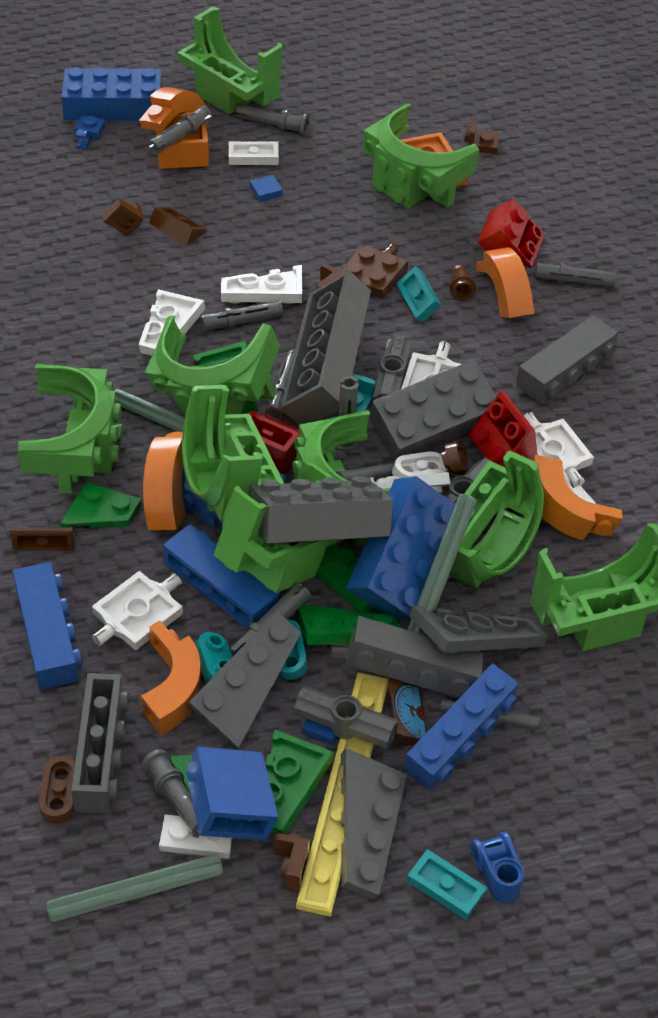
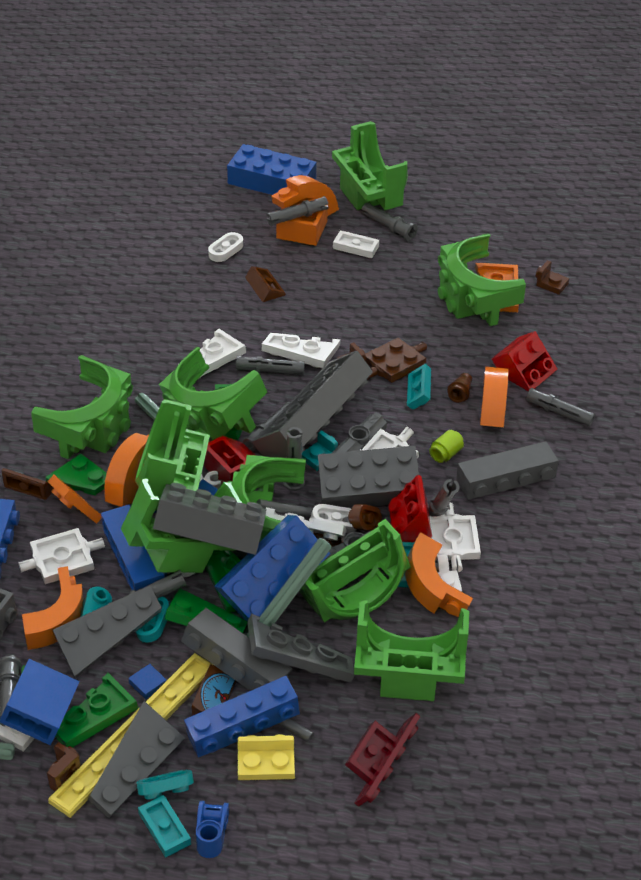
camera: 25 degrees right, 5 degrees down
(87, 129) = (240, 195): blue plate -> none
(108, 191) = (225, 247): none -> white plate
(111, 537) = (70, 498): none -> orange wing
(123, 216) = (223, 267): reddish brown bracket -> none
(266, 188) = (350, 274): blue tile -> none
(362, 722) = (159, 679): dark grey piece -> none
(417, 835) = (176, 781): none -> teal plate
(487, 350) = (446, 446): none -> lime brick
(508, 764) = (266, 757): none -> light yellow bracket
(540, 403) = (440, 502): none -> dark grey pin
(625, 718) = (375, 754): none -> dark red bracket

